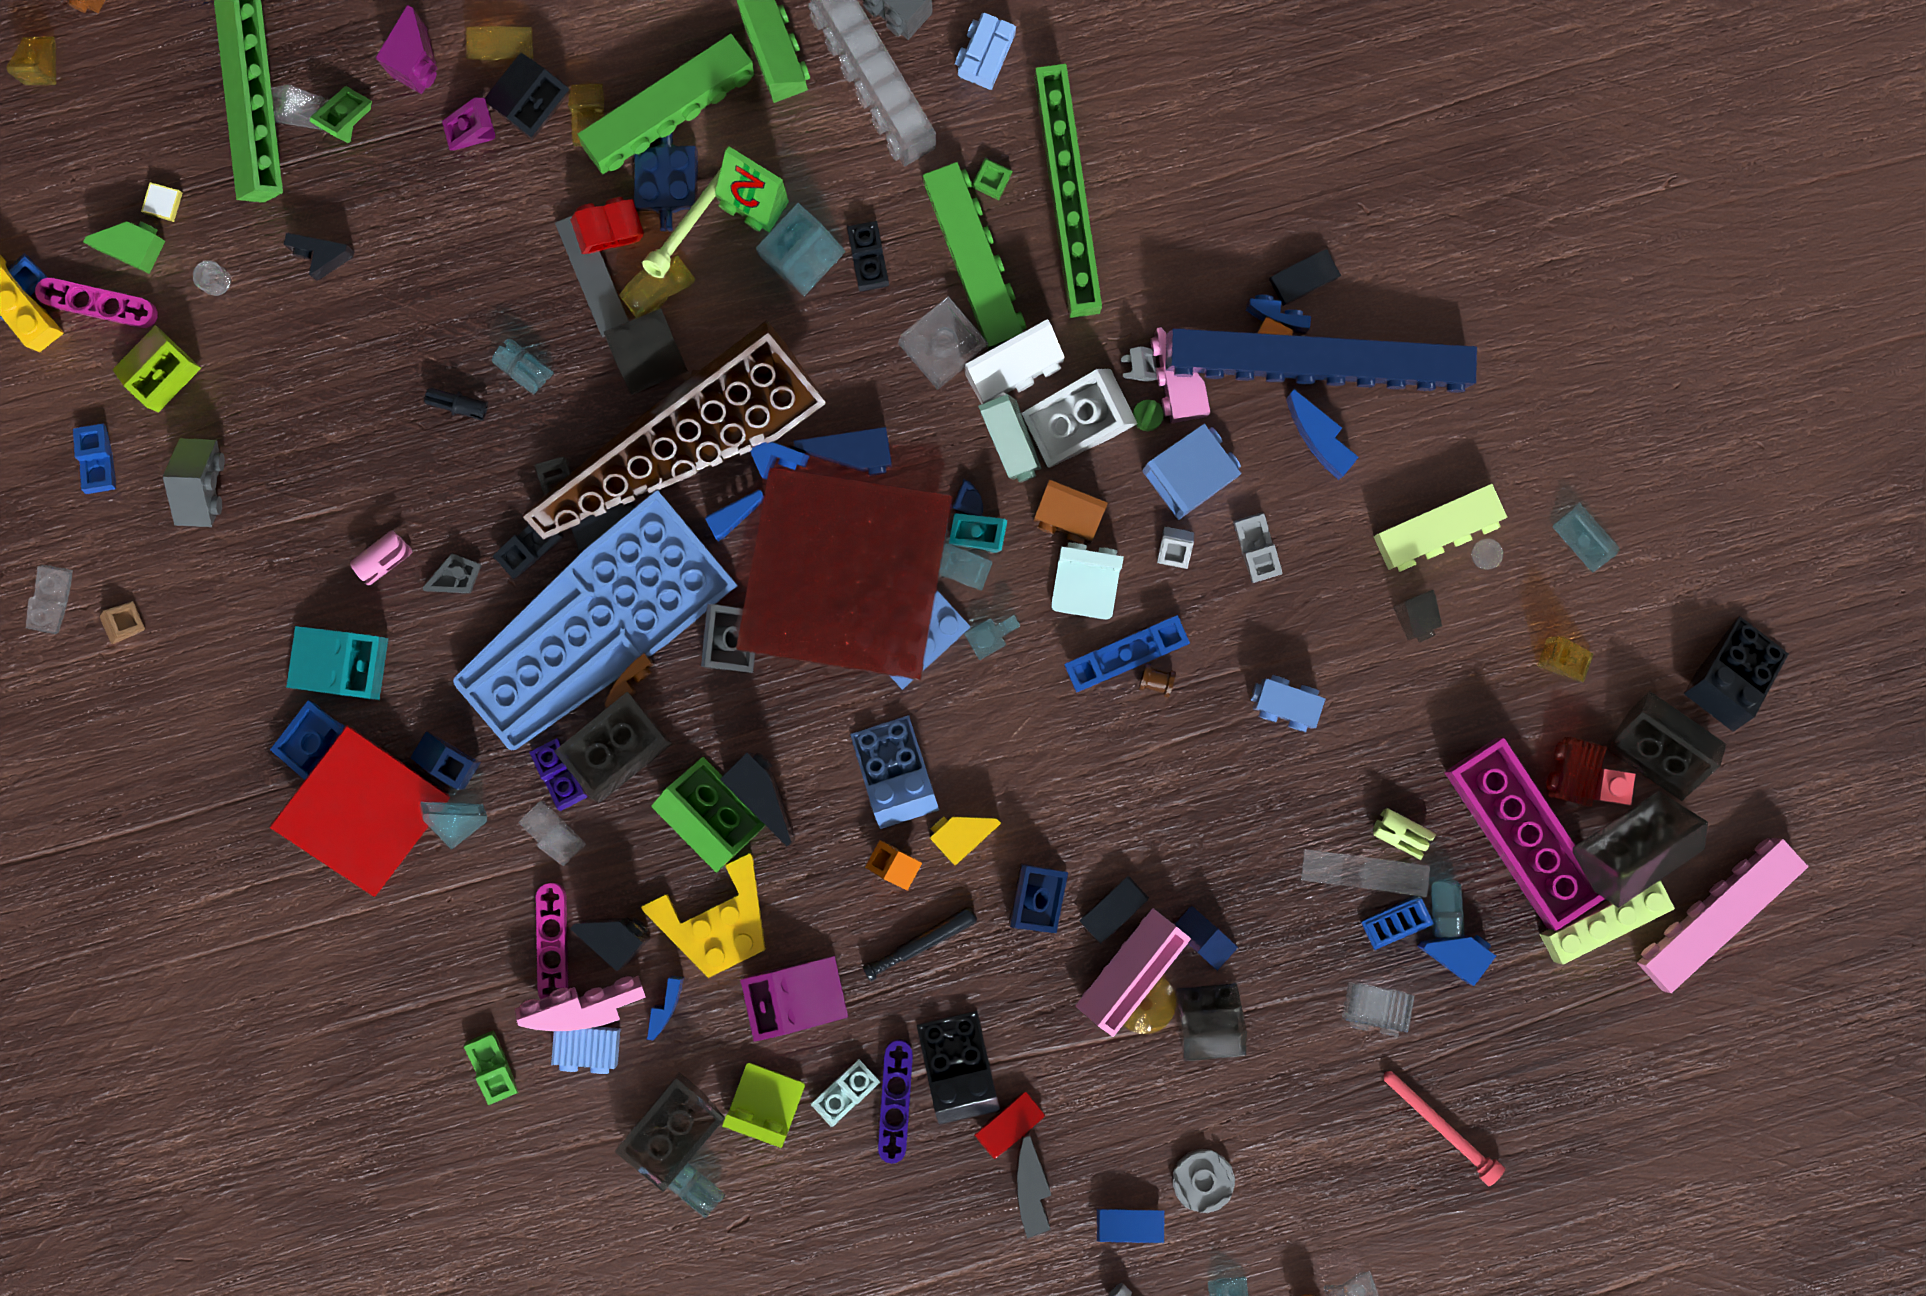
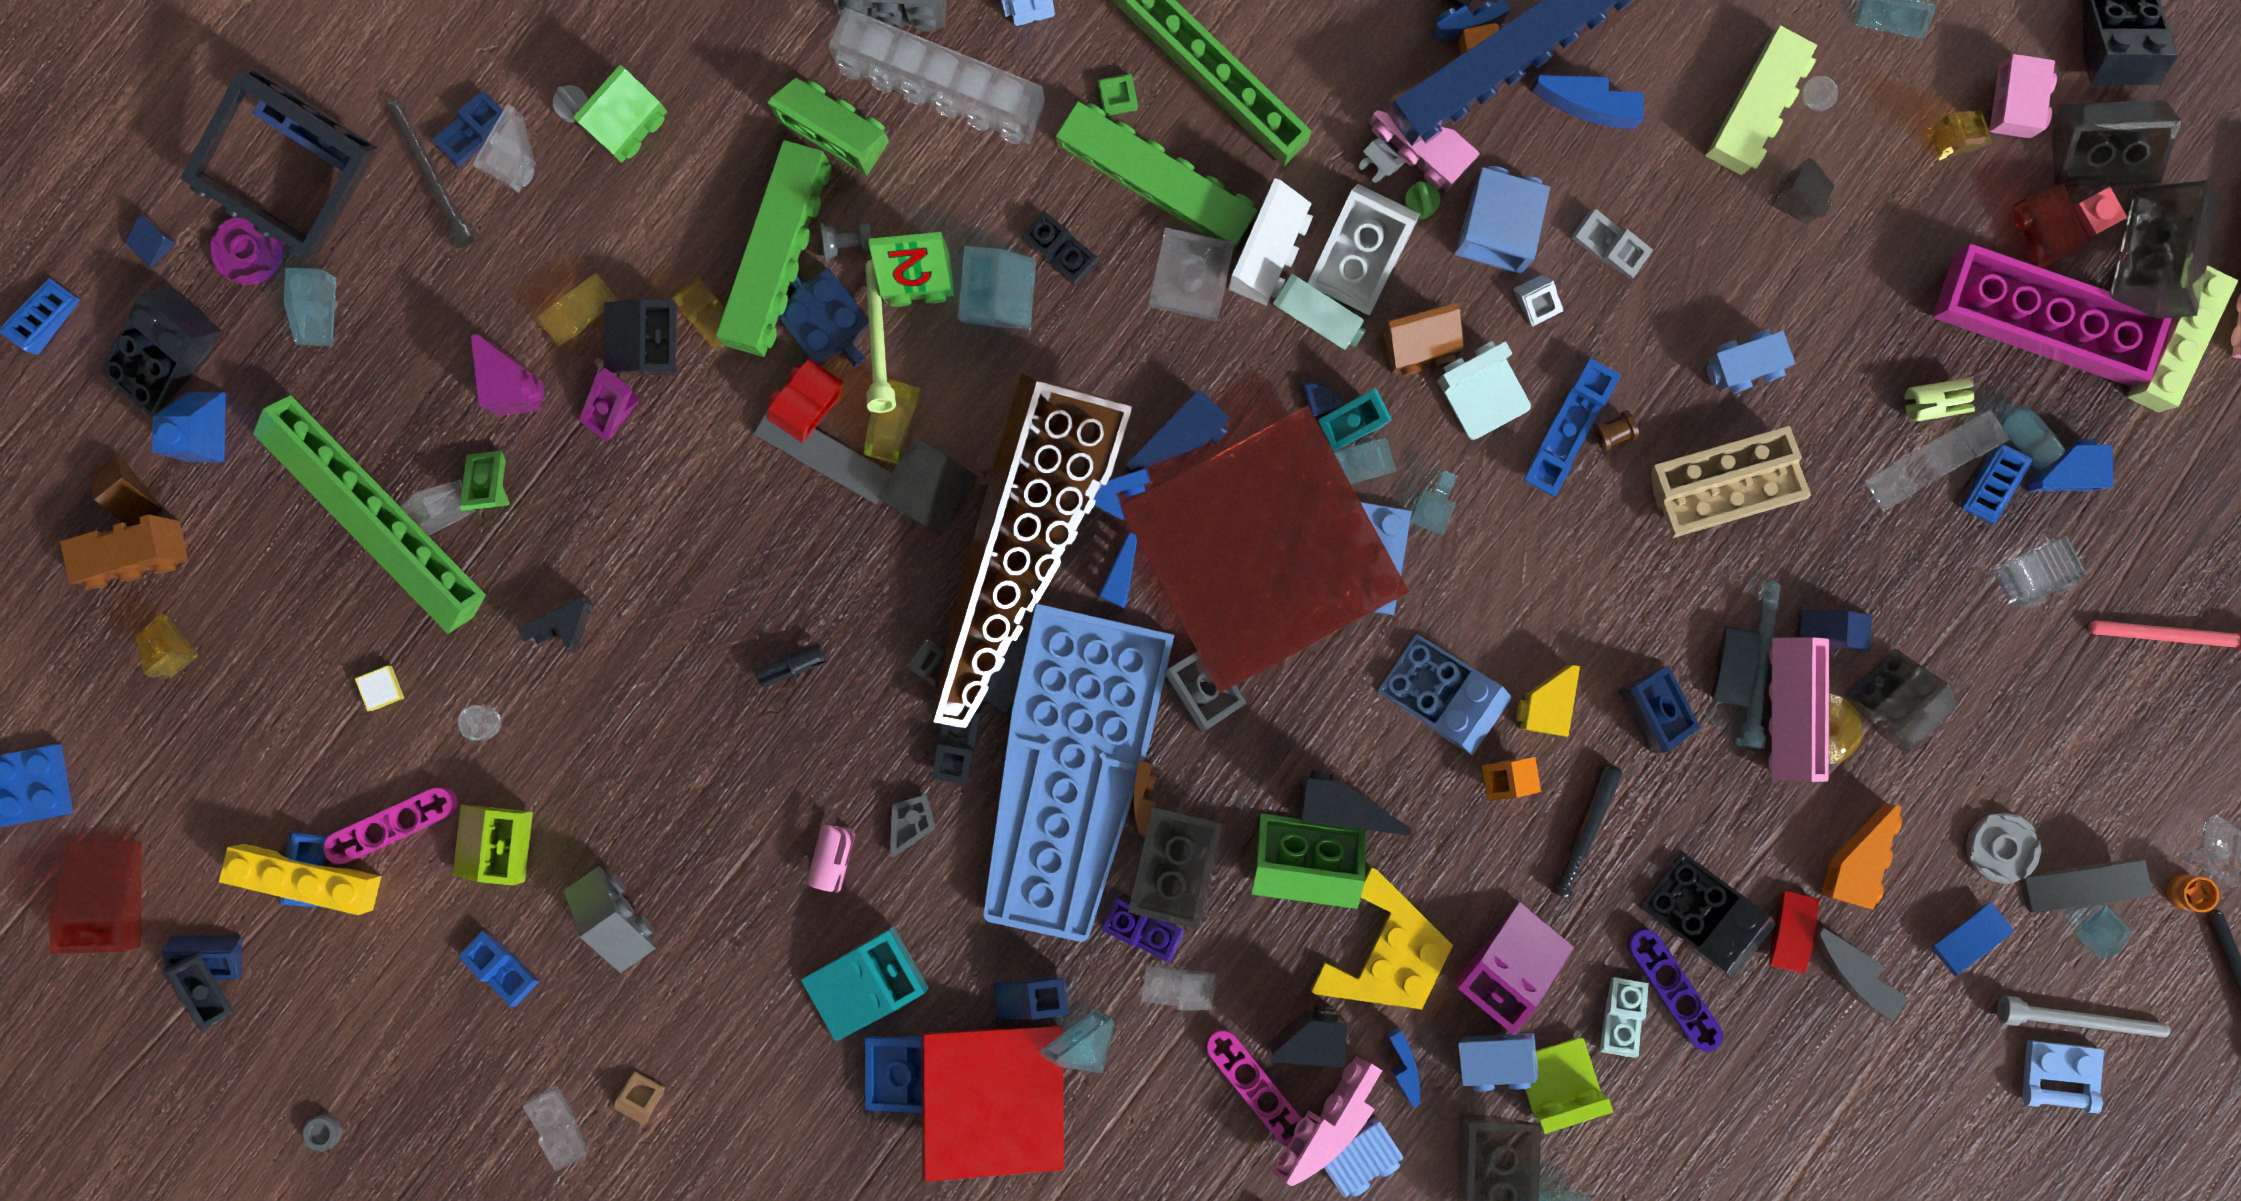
camera: 30 degrees left, 0 degrees up
(129, 243) = (379, 749): bright green slope -> none
(521, 366) = (825, 586): clear light blue arm -> none
(712, 130) = (833, 241): none -> dark grey piece
(732, 1053) = (1498, 1061): none -> medium blue brick
(1088, 964) = (1751, 732): none -> clear light blue piece
(1089, 1114) = (1859, 866): none -> orange slope
(1208, 776) = (1730, 482): none -> tan brick
(1240, 1251) = (2088, 885): none -> dark grey slope
(1627, 665) = (2023, 96): none -> bright pink brick

